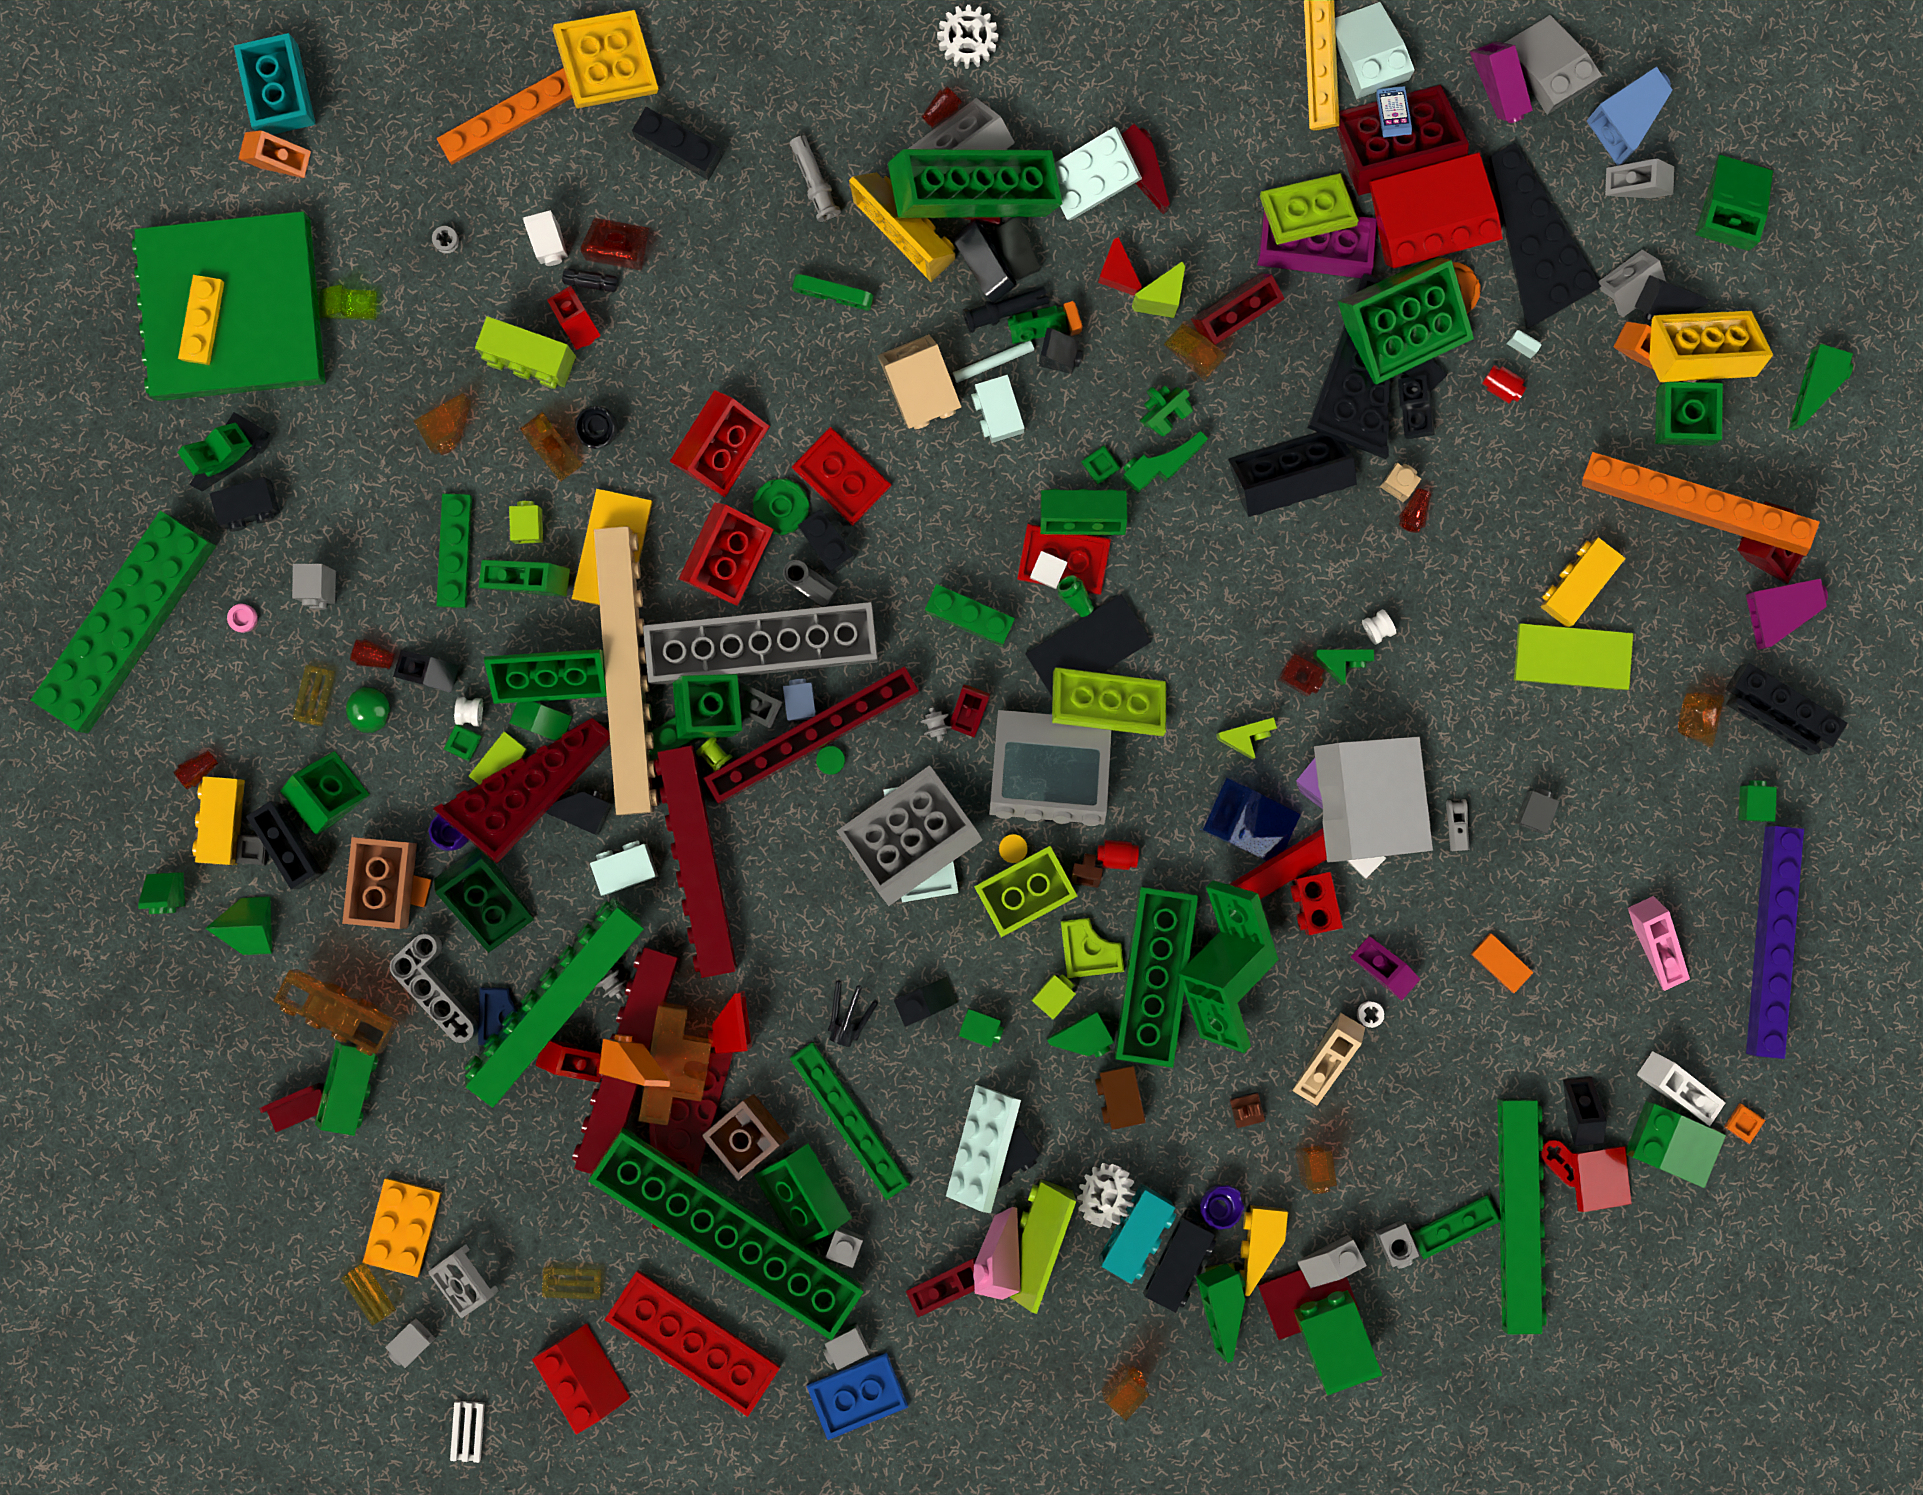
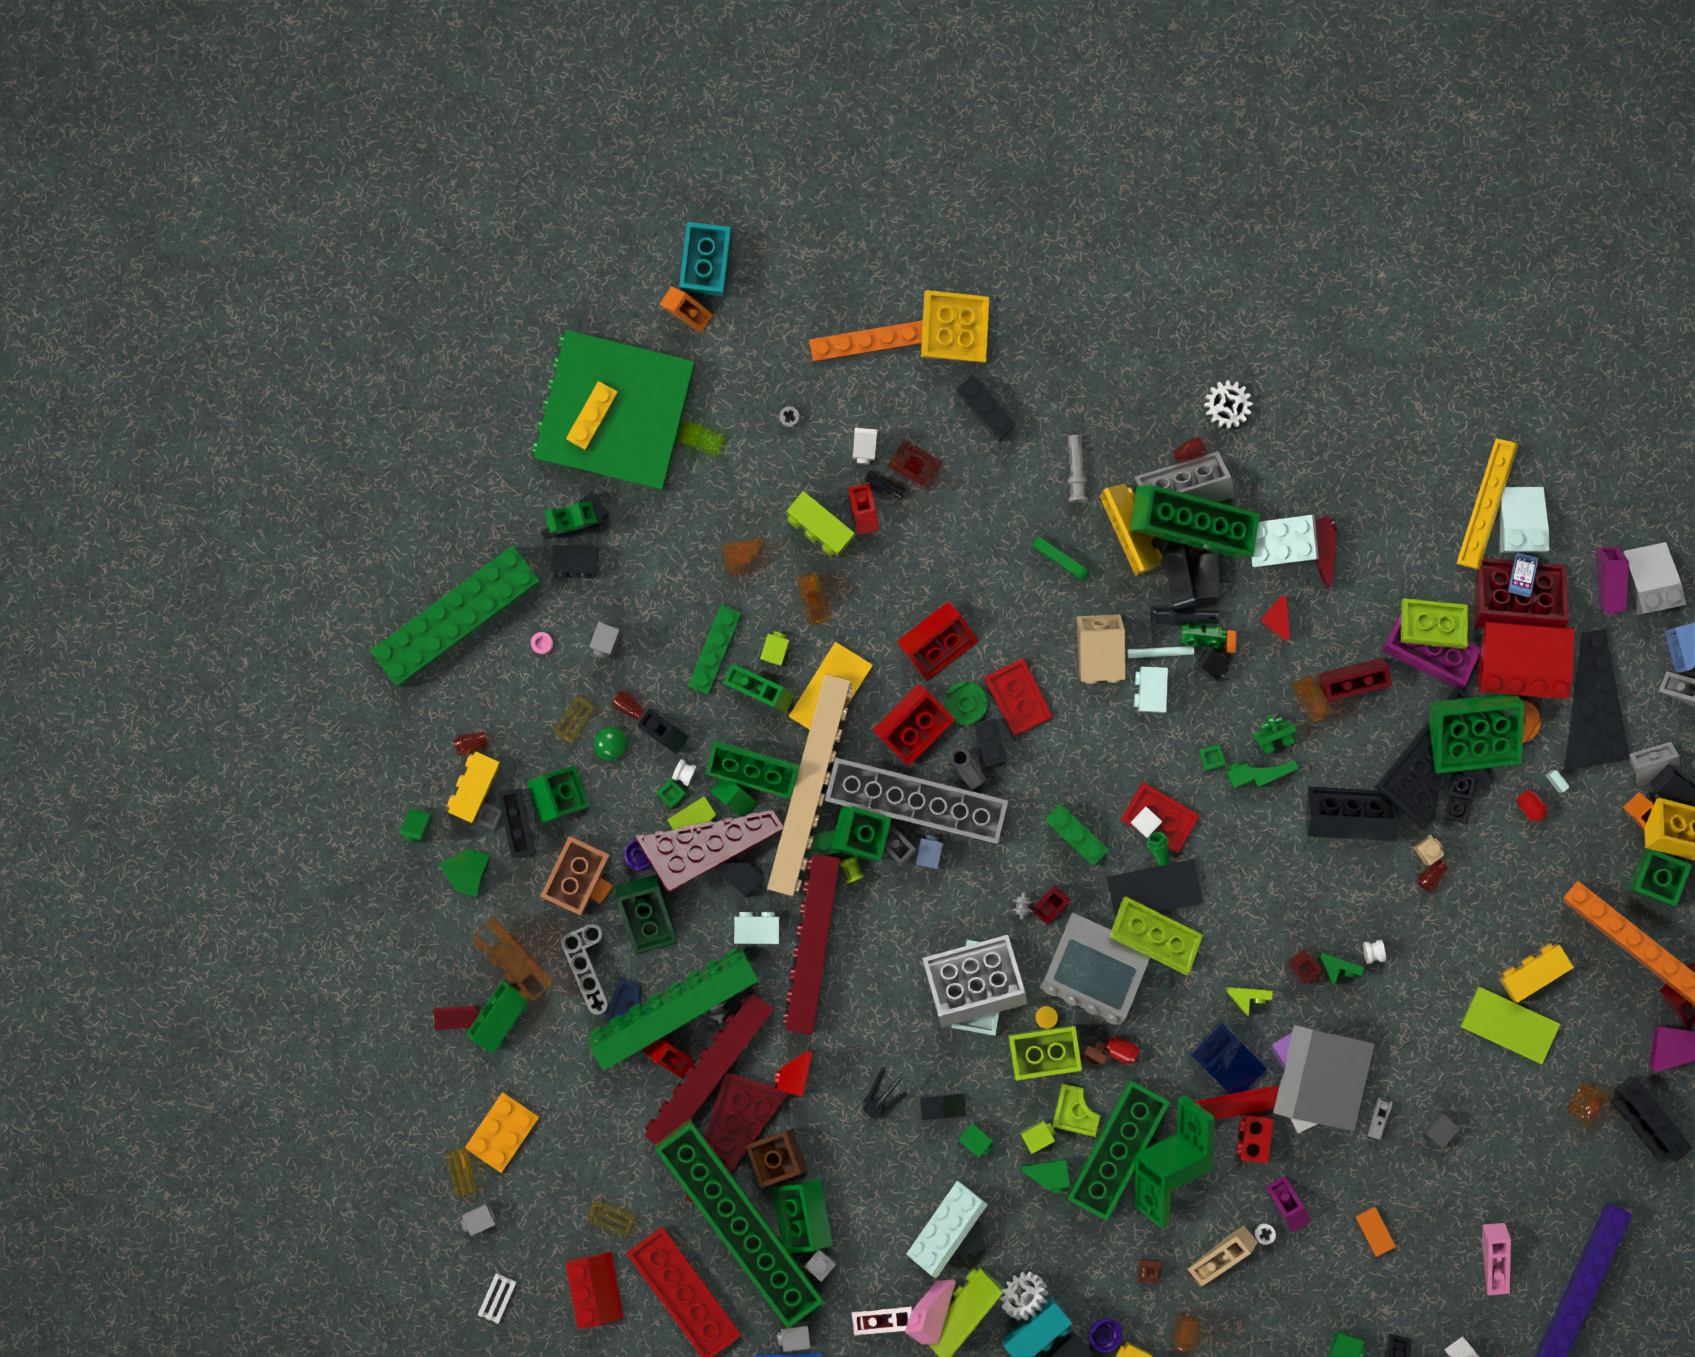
camera: 20 degrees right, 0 degrees up
(461, 1300) = (523, 1174): light grey piece -> none
(596, 419) = (854, 590): black hair -> none
(630, 1062) = (715, 1074): orange slope -> none
(682, 1060) = (744, 1087): clear orange piece -> none
(811, 735) = (930, 881): dark red brick -> none
(830, 760) = (935, 903): green tile -> none
(849, 1121) = (855, 1173): green tile -> none
(1083, 512) = (1187, 788): green brick -> none
(1120, 1096) = (1060, 1228): reddish brown brick -> none
(1161, 295) = (1303, 651): lime slope -> none
(1757, 802) = (1606, 1181): green brick -> none

